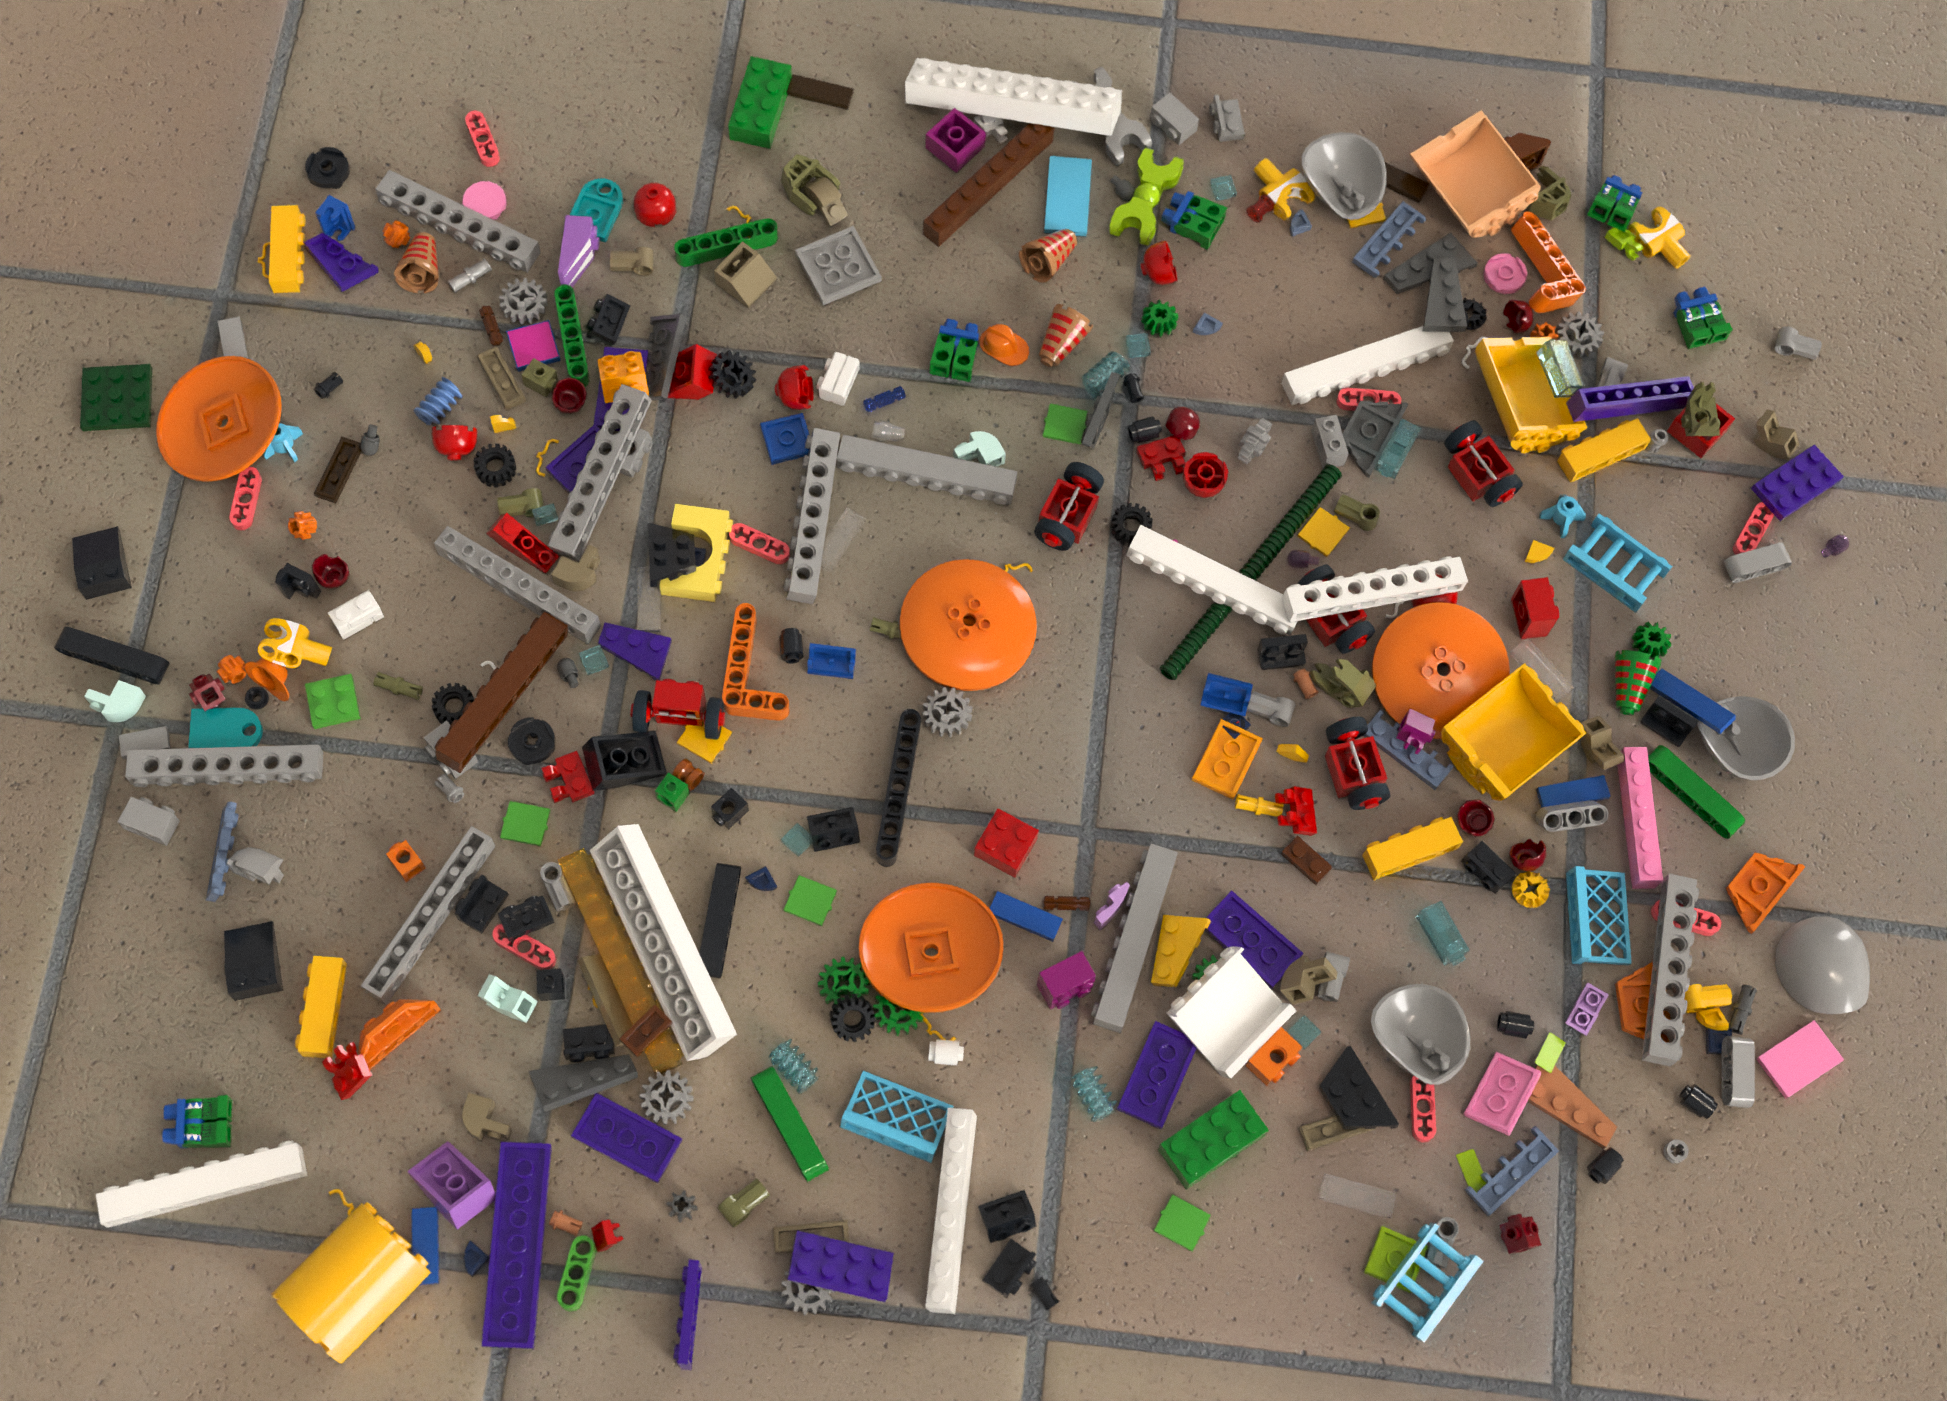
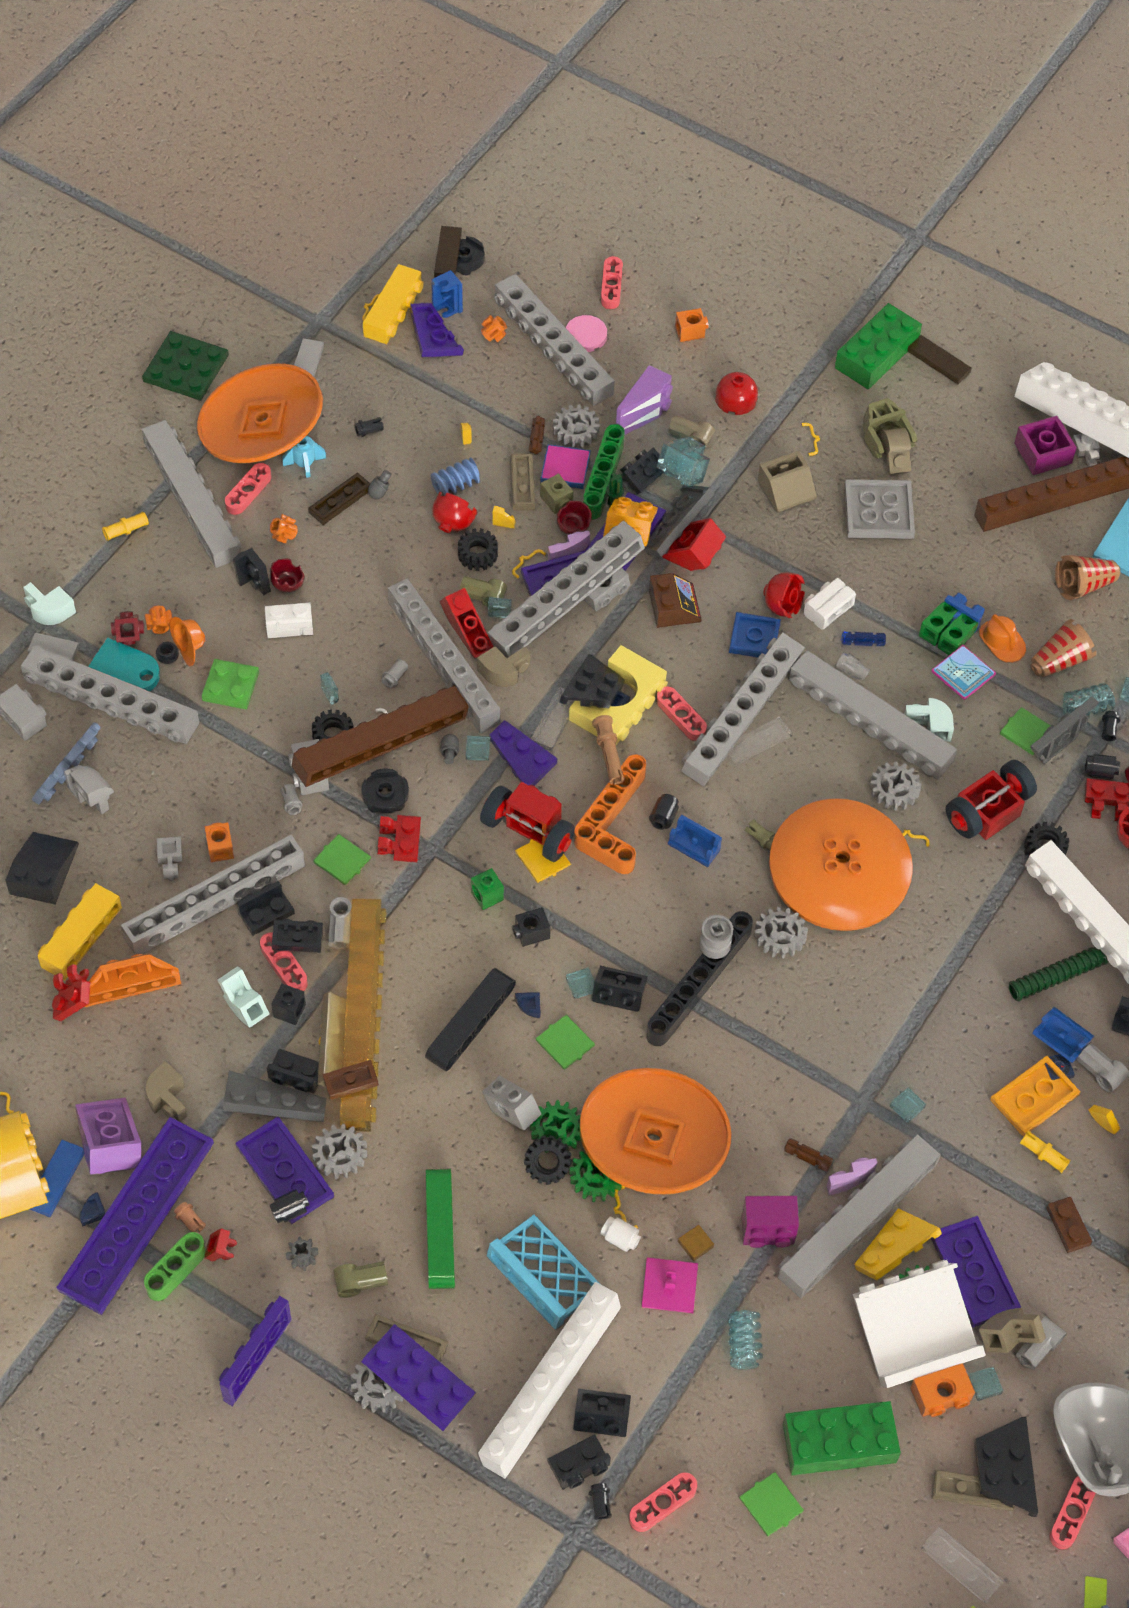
camera: 30 degrees right, 10 degrees down
(100, 563) = (97, 490): black slope -> none
(111, 655) = (65, 566): black beam -> none
(147, 588) = (125, 526): none -> yellow pin
(193, 527) = (190, 493): none -> light grey brick
(292, 645) = (220, 621): yellow connector -> none
(312, 173) = (448, 250): none -> dark brown tile
(364, 891) = (169, 851): none -> light grey plate
(398, 685) = (293, 695): olive pin -> none
(418, 265) = (498, 360): medium nougat cone -> none
(428, 664) = (329, 688): none -> clear light blue tile
(469, 275) = (540, 387): light grey pin -> none
(480, 628) = (394, 673): none -> light grey pin
(576, 159) = (691, 324): none -> orange brick
(582, 420) = (575, 543): none -> lavender slope
(593, 352) = (615, 488): none -> dark green axle
(600, 206) = (687, 378): teal tile -> none
(623, 759) = (458, 841): black slope -> none
(642, 296) = (684, 460): none -> clear light blue brick
(651, 1171) = (289, 1206): none -> black brick
(662, 942) = (408, 1013): white brick -> none
(688, 774) = (510, 879): dark orange wheel -> none
(698, 437) = (673, 600): none -> reddish brown slope
(710, 603) = (606, 740): none -> medium nougat pin
(716, 239) = (769, 446): green beam -> none
(732, 374) = (731, 559): black gear -> none
(794, 1066) = (471, 1179): clear light blue piece -> none
(795, 981) = (511, 1102): none -> light grey brick
(896, 751) = (716, 936): none -> light grey wheel
(987, 394) = (963, 672): none -> piece
(989, 524) = (904, 792): none -> light grey gear
(1006, 843) = (777, 1072): red brick -> none
(1007, 1075) = (669, 1285): none -> dark pink piece
(1011, 1027) = (696, 1242): none -> pearl gold tile
(1025, 916) = (762, 1148): blue tile -> none
(1081, 1280) = (683, 1496): none -> coral beam
(1127, 818) = (907, 1105): none -> clear light blue tile
(1157, 1075) = (816, 1353): dark purple plate -> none
(1302, 810) = (1085, 1178): red plate -> none

